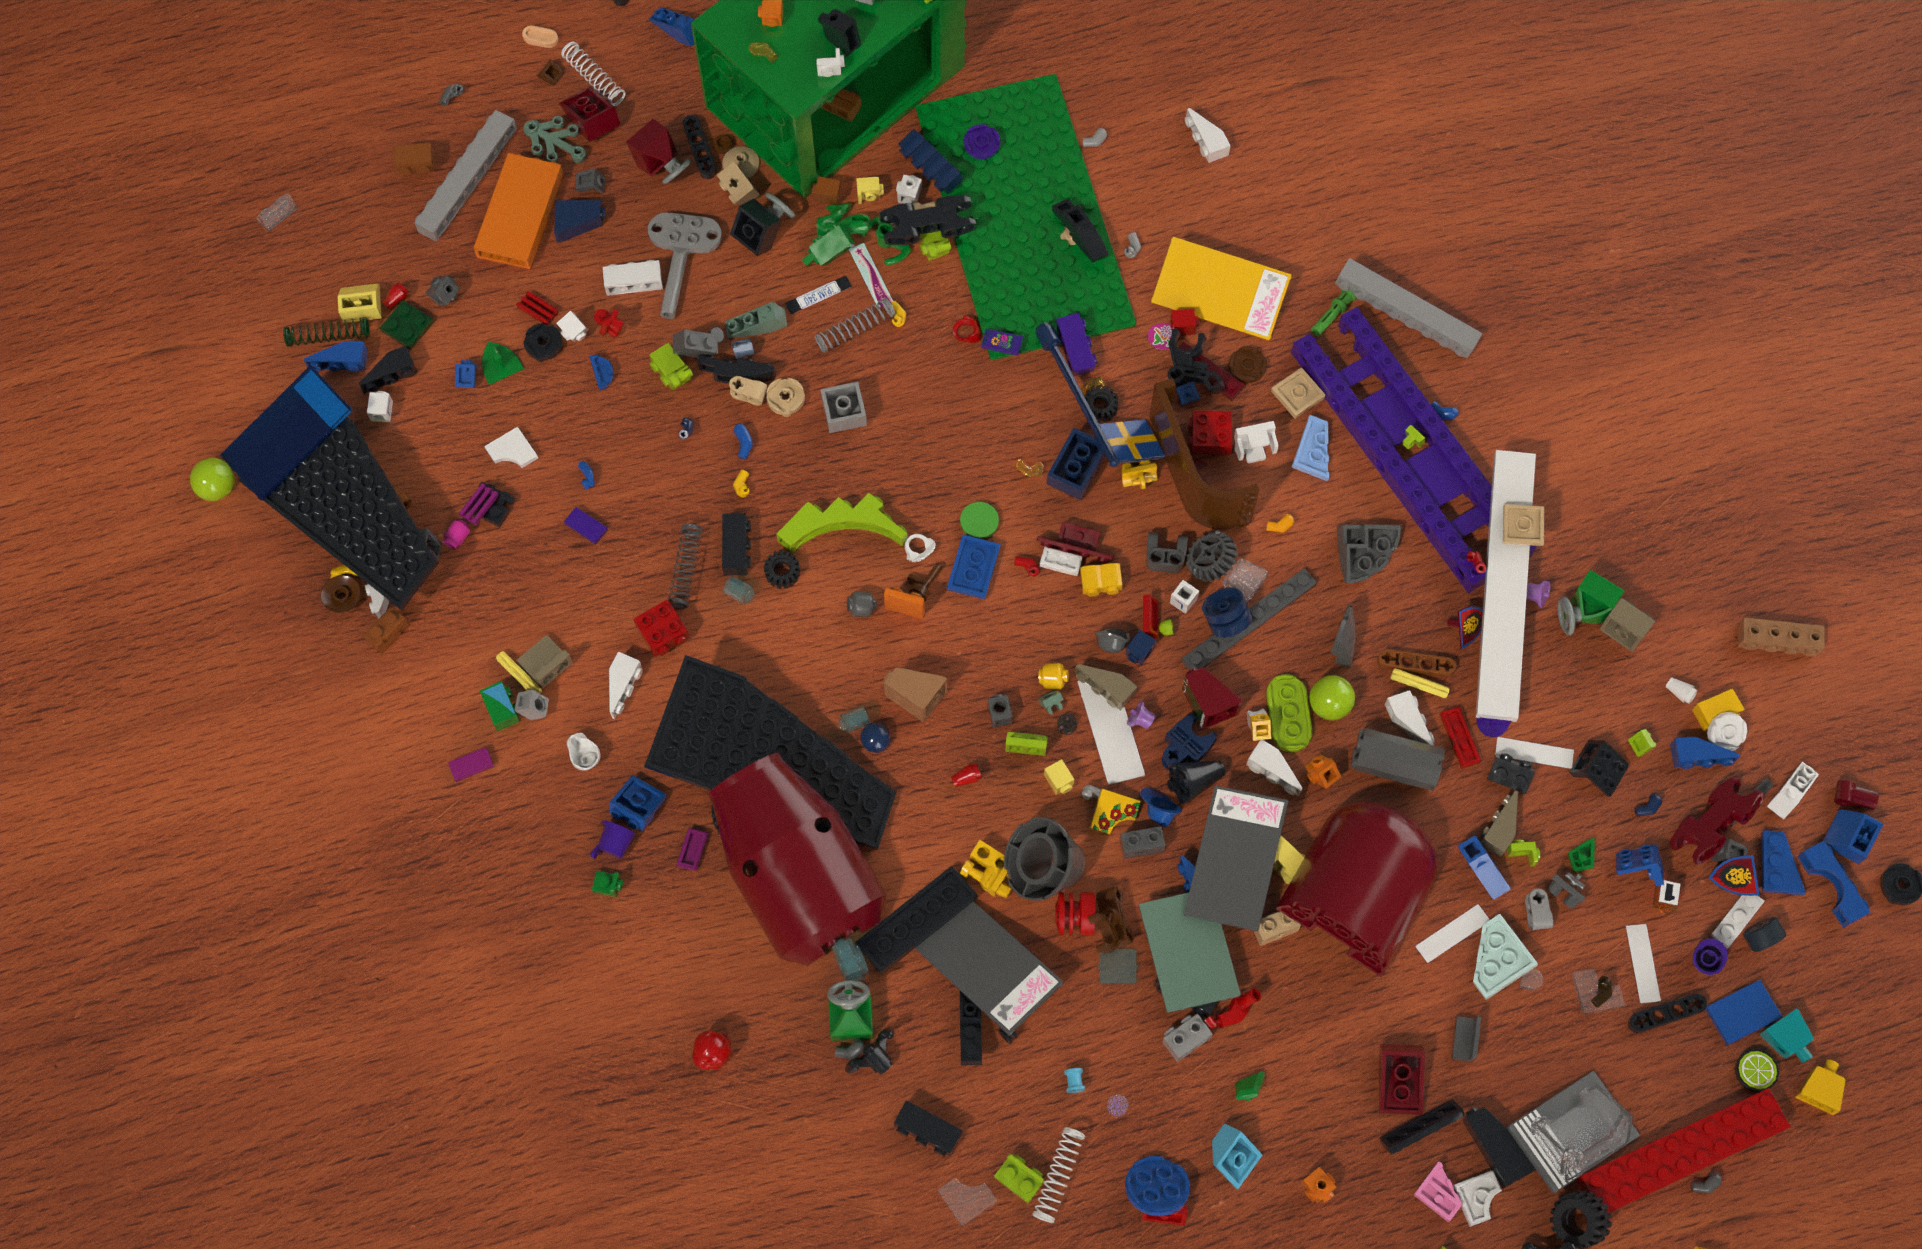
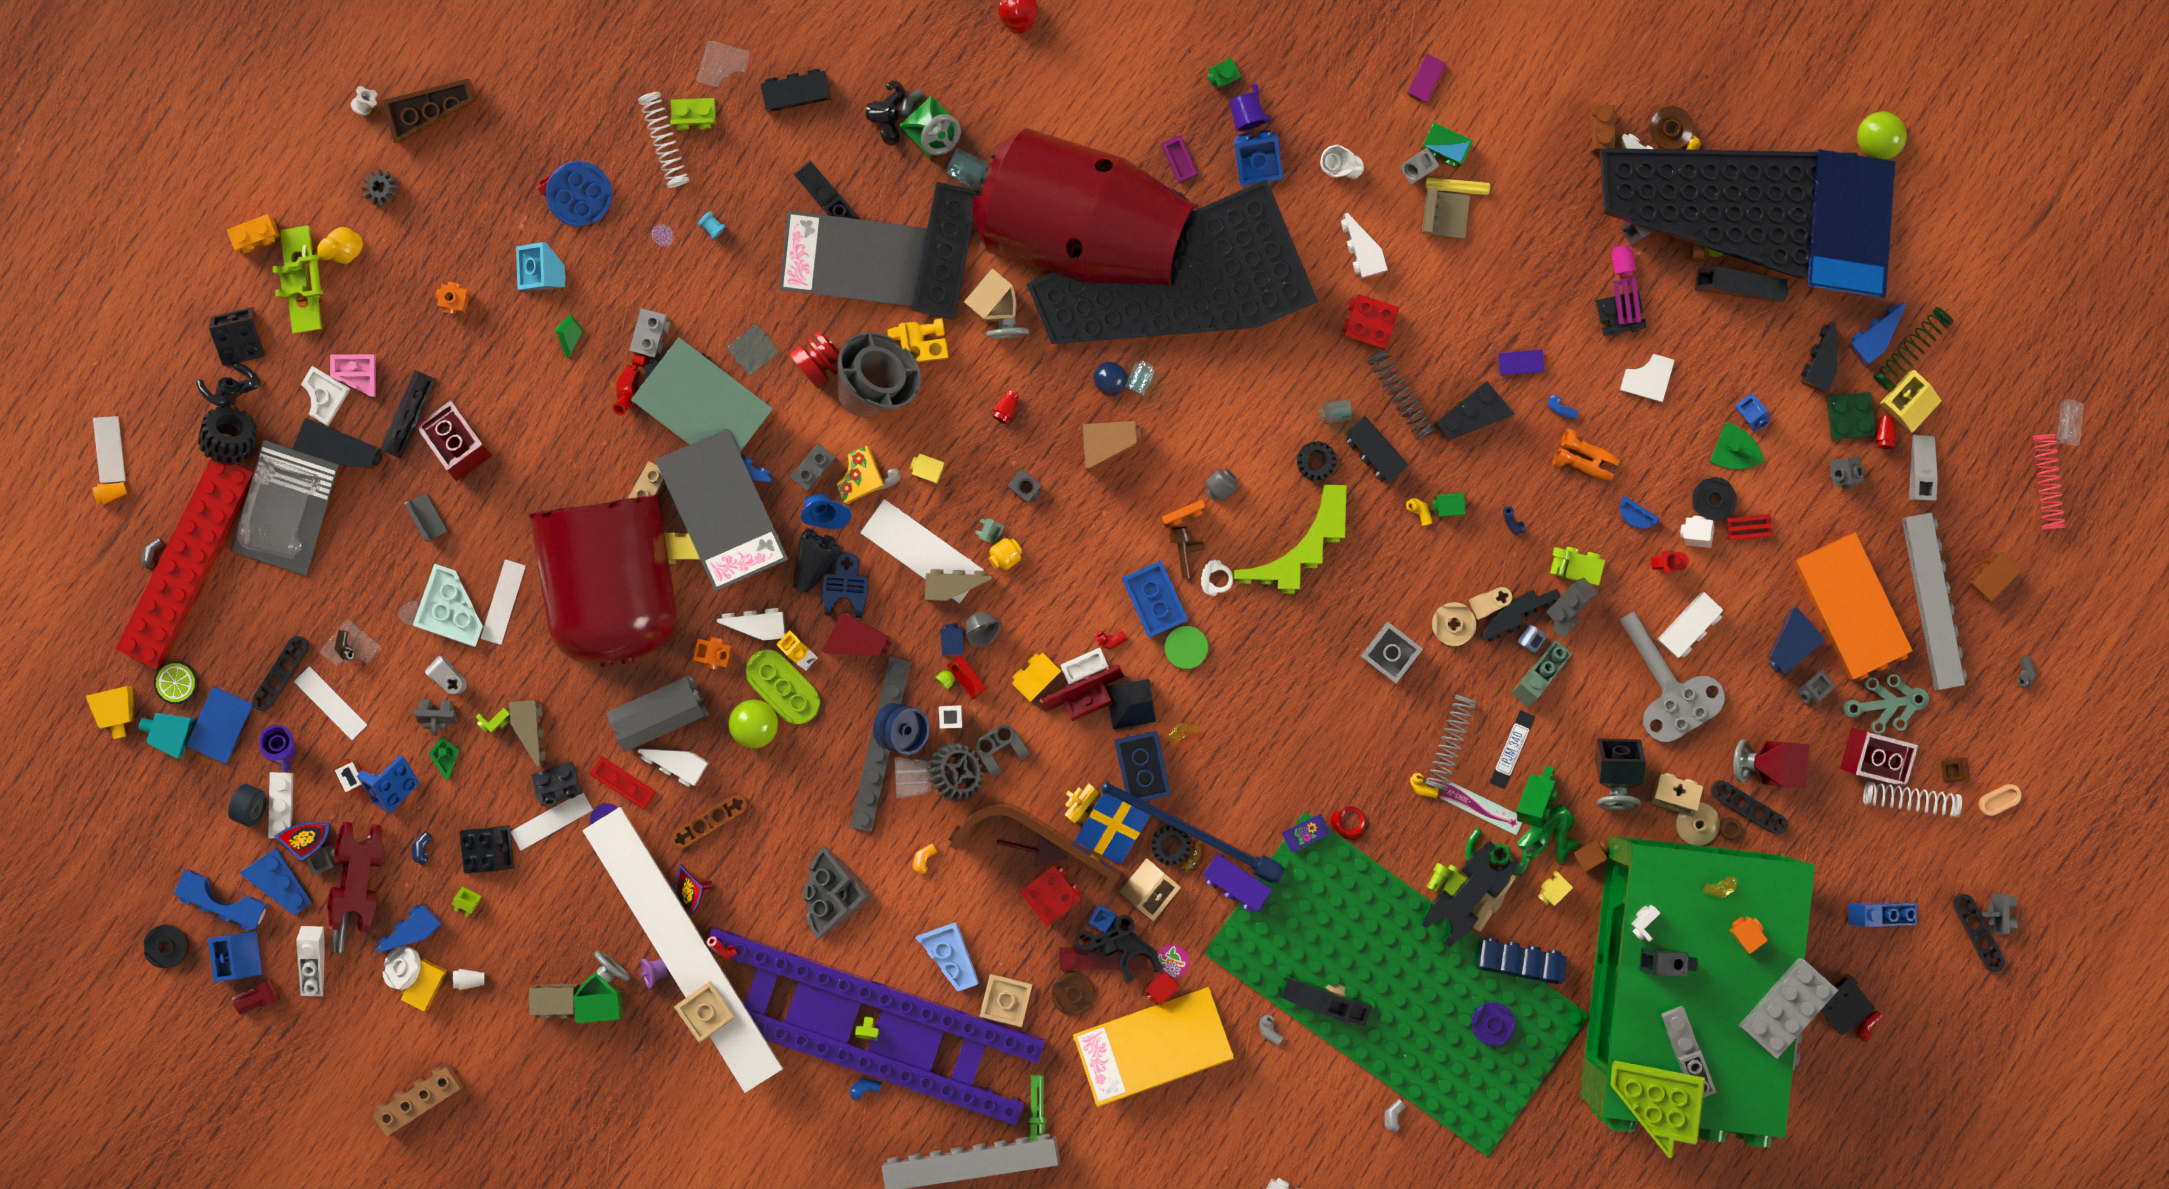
camera: 140 degrees right, 20 degrees up
(344, 157) = (2040, 439): none -> coral piece
(379, 406) = (1799, 320): white brick -> none
(394, 253) = (1923, 469): none -> light grey slope
(395, 457) = (1741, 284): none -> black slope
(602, 420) = (1589, 467): none -> orange piece
(648, 515) = (1474, 412): none -> black wedge
(718, 471) = (1449, 505): none -> green brick
(744, 439) = (1453, 554): blue arm -> none
(909, 189) = (1518, 919): white brick -> none
(912, 850) = (996, 301): none -> tan piece
(1026, 743) = (979, 476): lime bracket -> none
(1048, 513) = (1131, 704): none -> black slope
(1067, 724) = (960, 523): clear smoke tile -> none
(1114, 931) = (777, 368): reddish brown piece -> none
(1137, 383) = (1150, 889): none -> tan slope
(1141, 716) = (903, 578): medium lavender piece -> none
(1252, 439) = (1003, 914): white panel -> none
(1346, 639) = (785, 793): dark grey brick -> none
(1420, 683) = (692, 805): light yellow axle -> none
(1484, 867) = (519, 678): slope -> none

